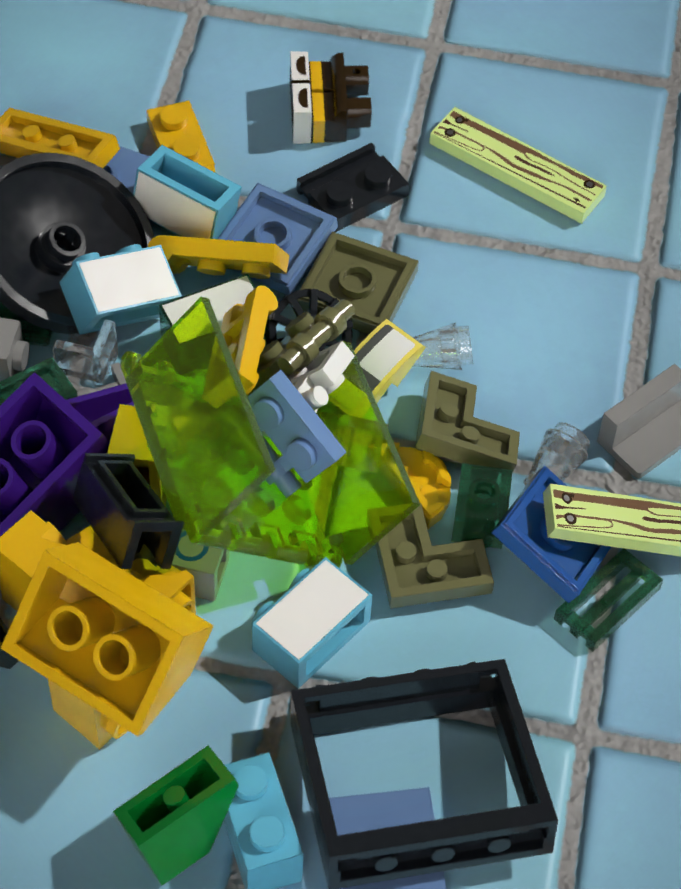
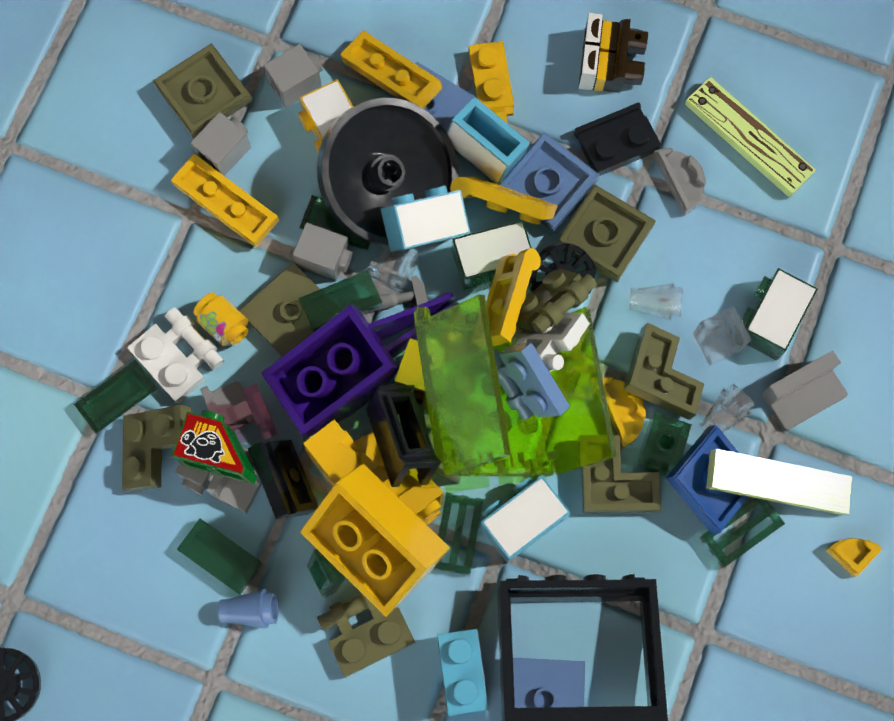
camera: 10 degrees right, 20 degrees up
(44, 717) = (324, 574): none -> clear green tile
(92, 822) = (368, 642): none -> olive plate
(179, 814) = (408, 662): green slope -> none
(225, 620) = (463, 502): none -> clear green tile
(387, 356) = (613, 307): slope -> none
(443, 216) = (683, 177): none -> light grey tile
(530, 373) = (721, 336): none -> clear panel
(594, 341) = (777, 313): none -> white brick

